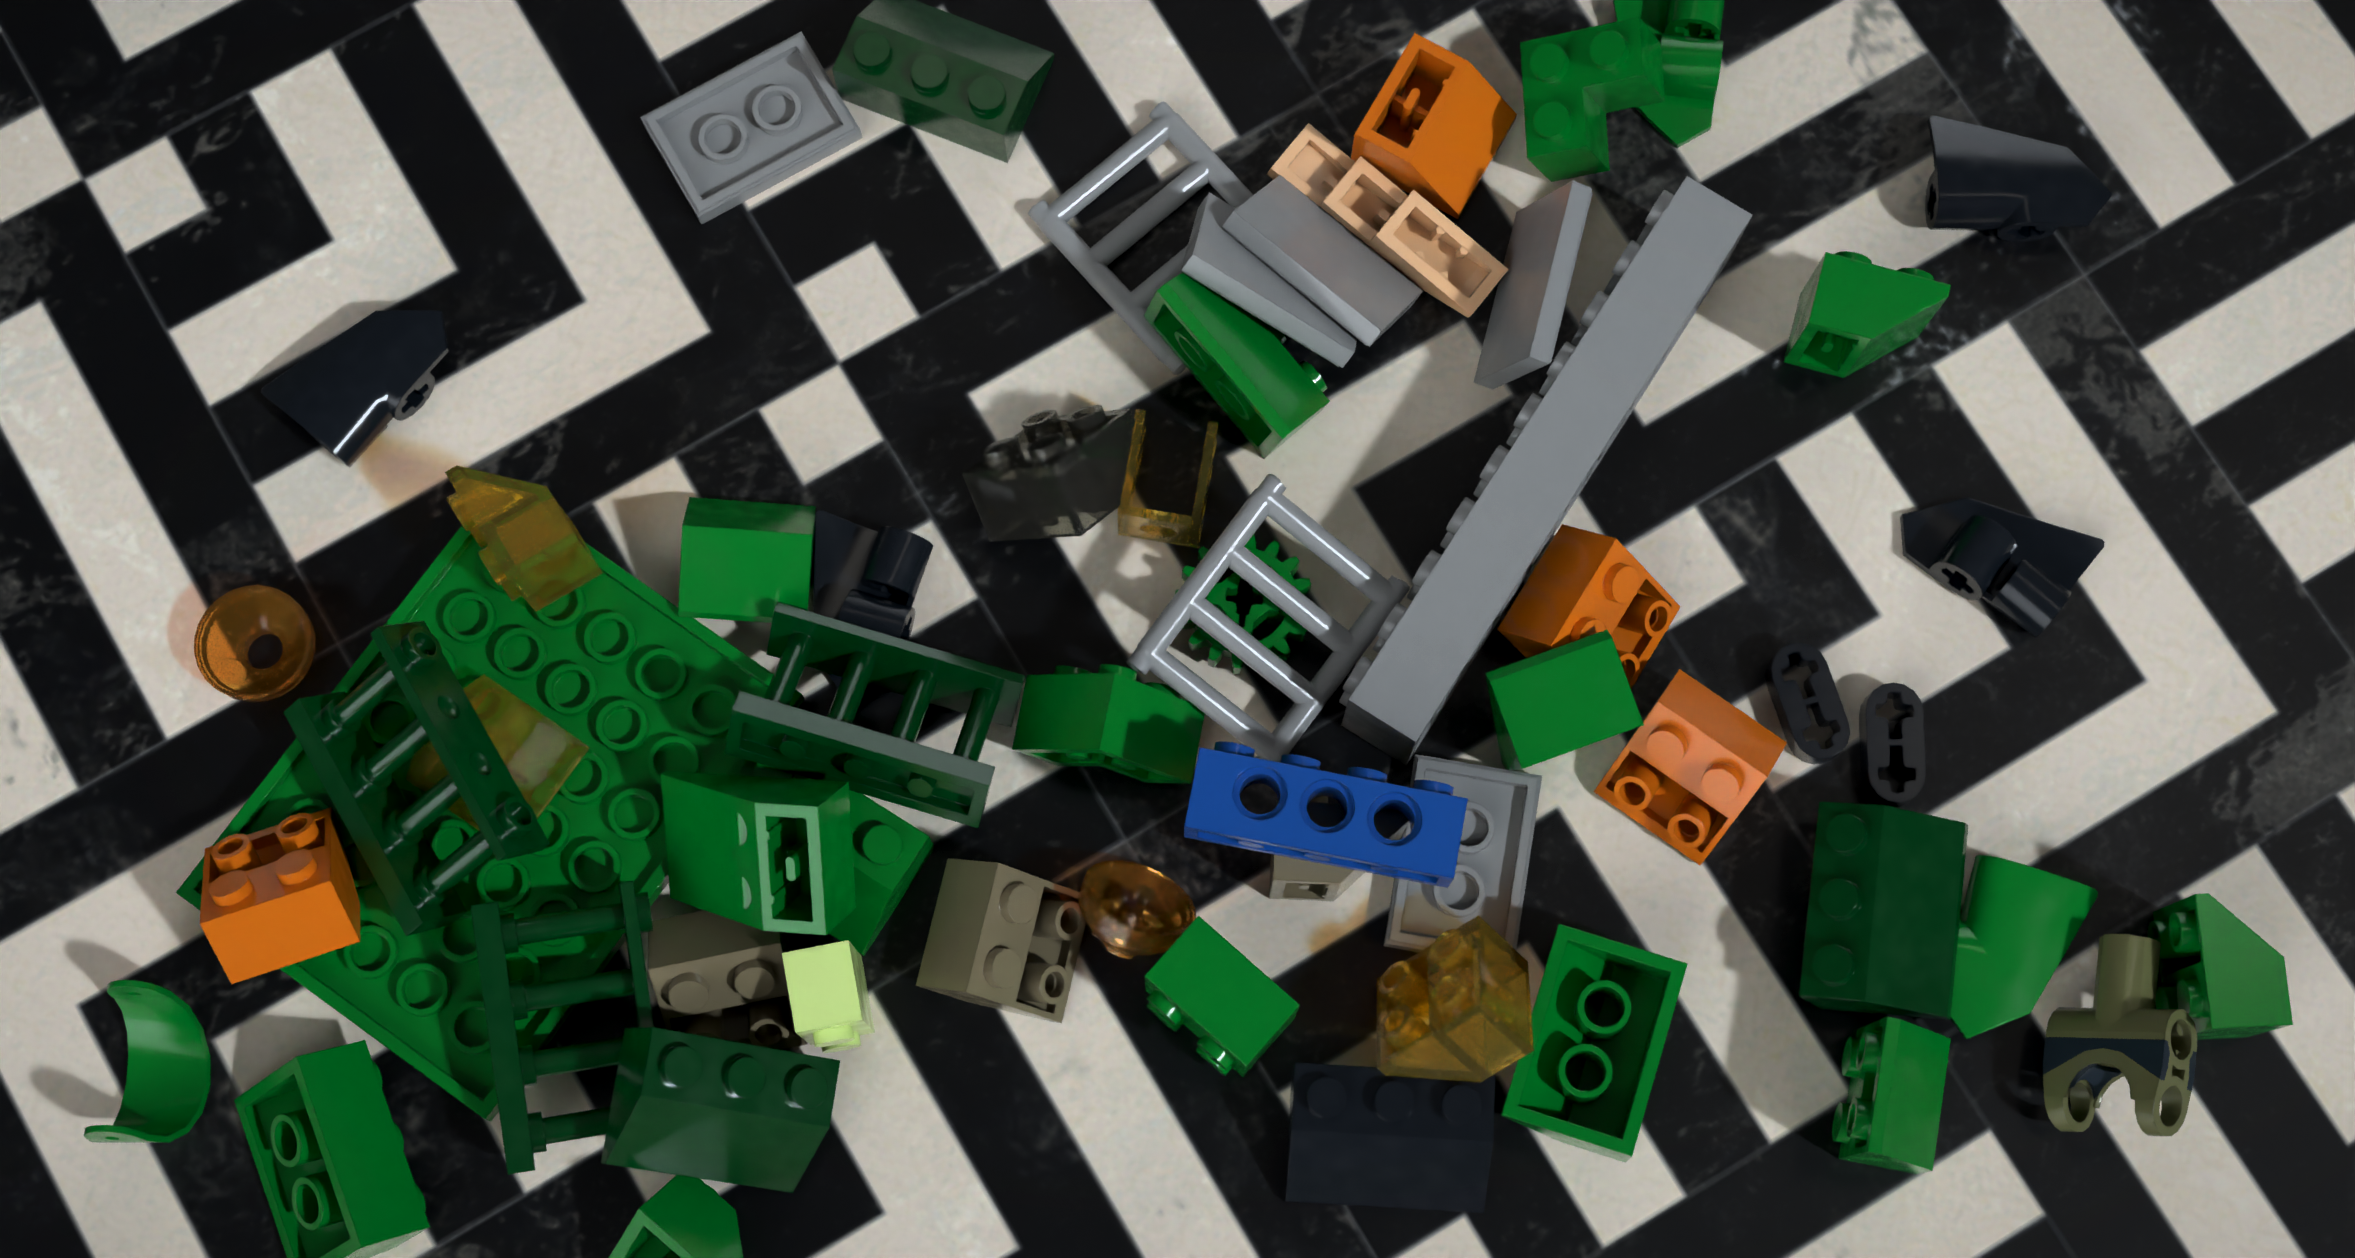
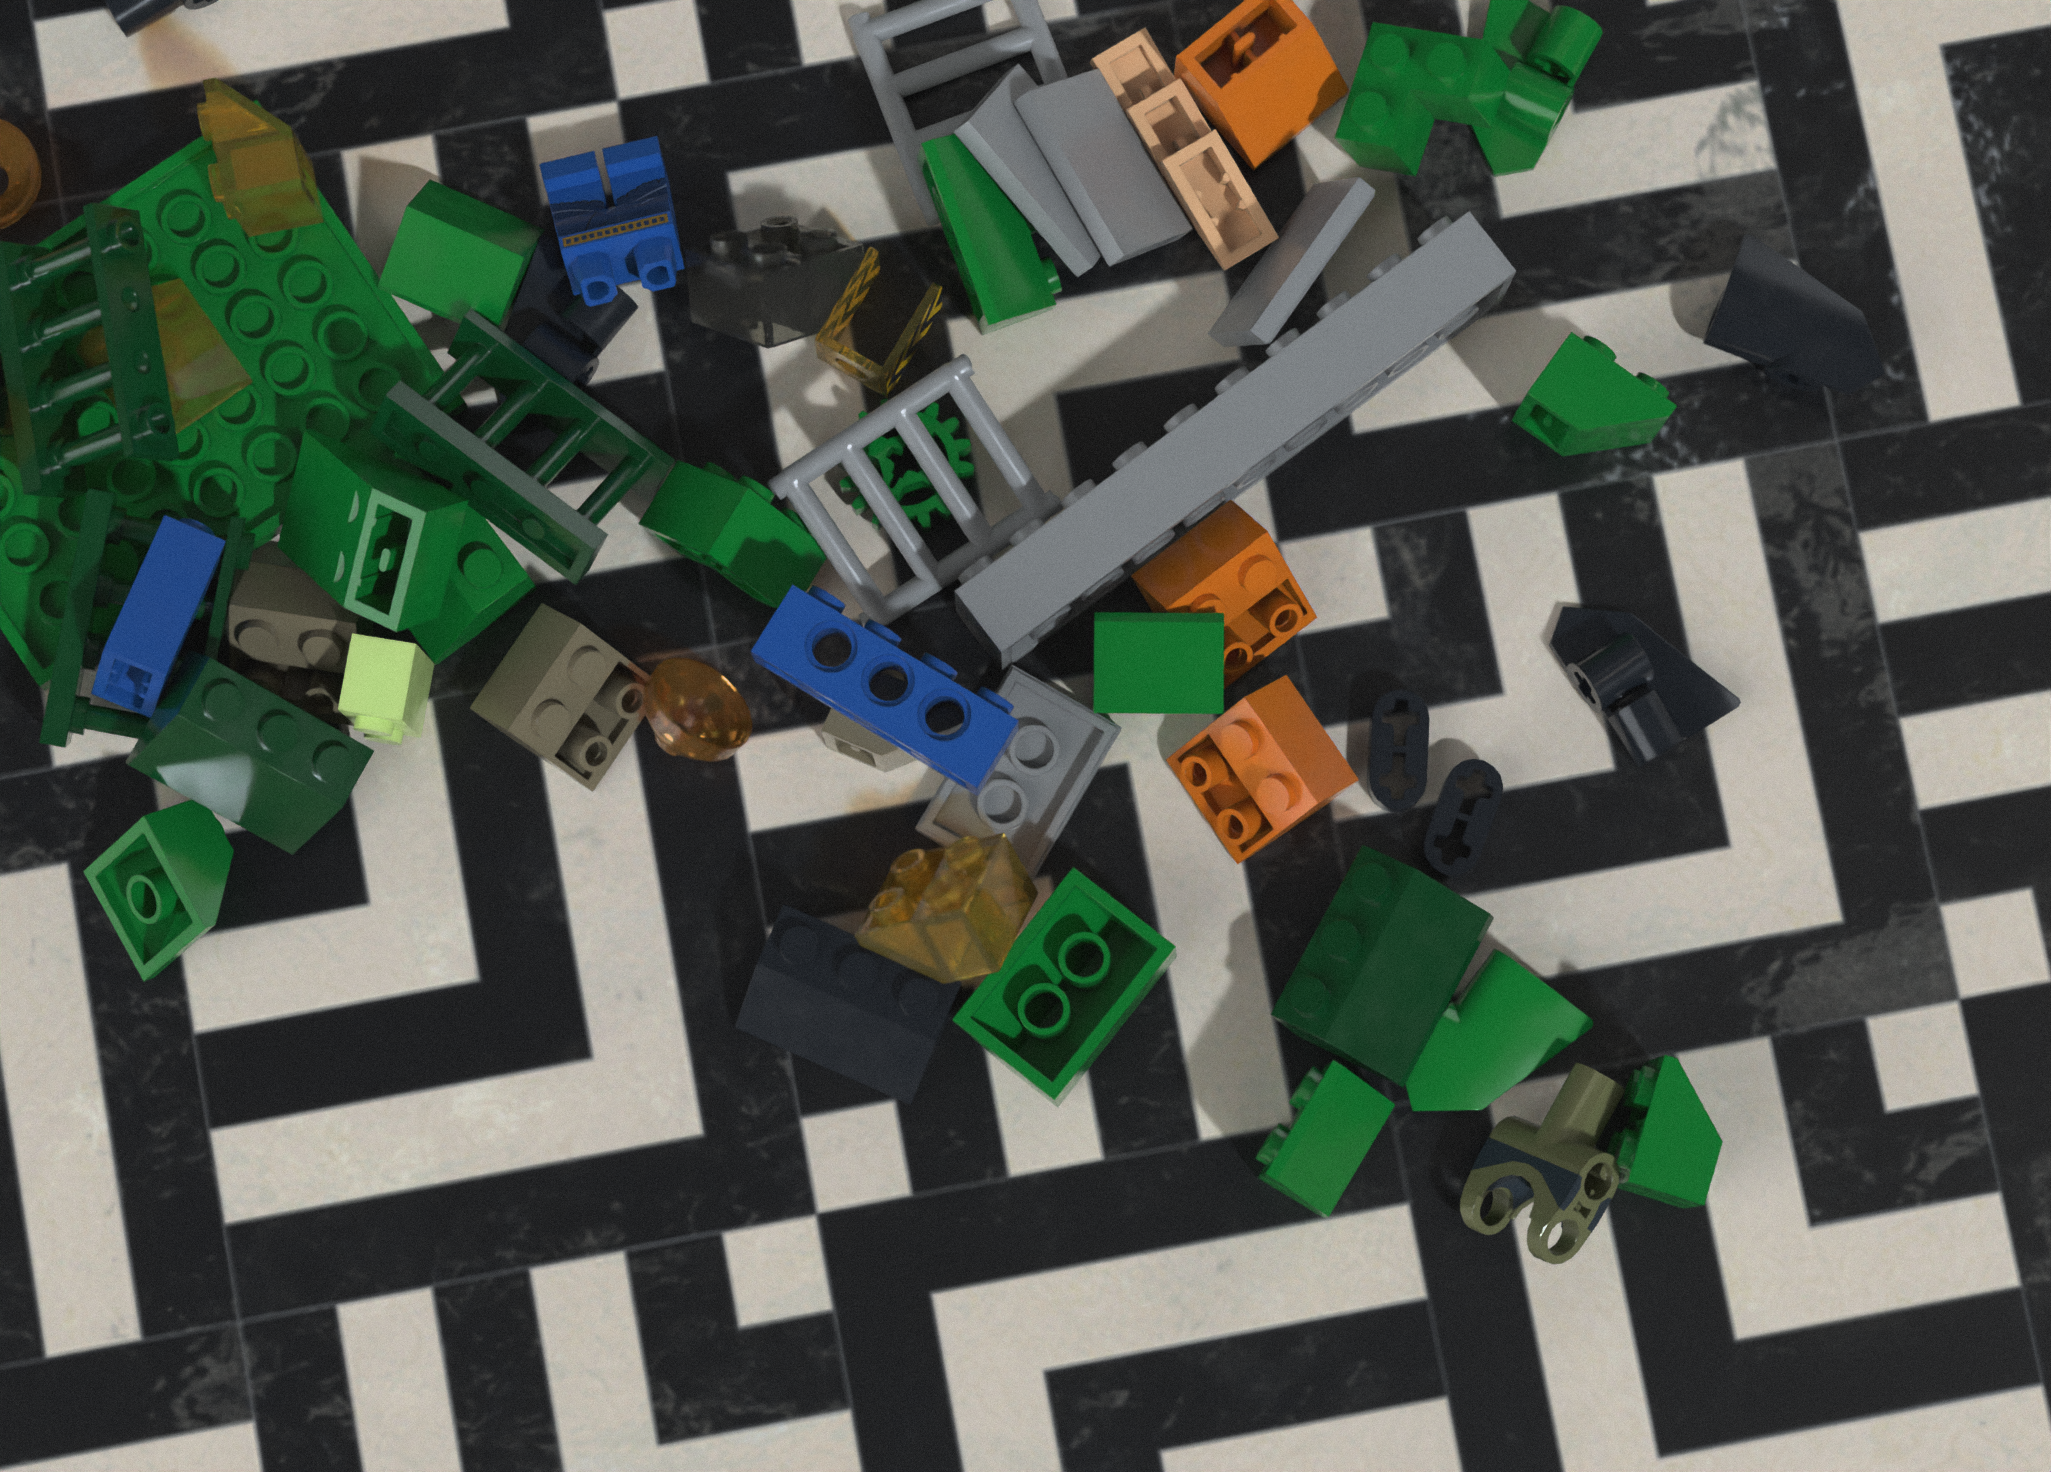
camera: 20 degrees right, 5 degrees up
(584, 1005) = (158, 615): none -> blue slope
(897, 489) = (618, 242): none -> blue hips
(1218, 998) = (738, 819): green brick -> none

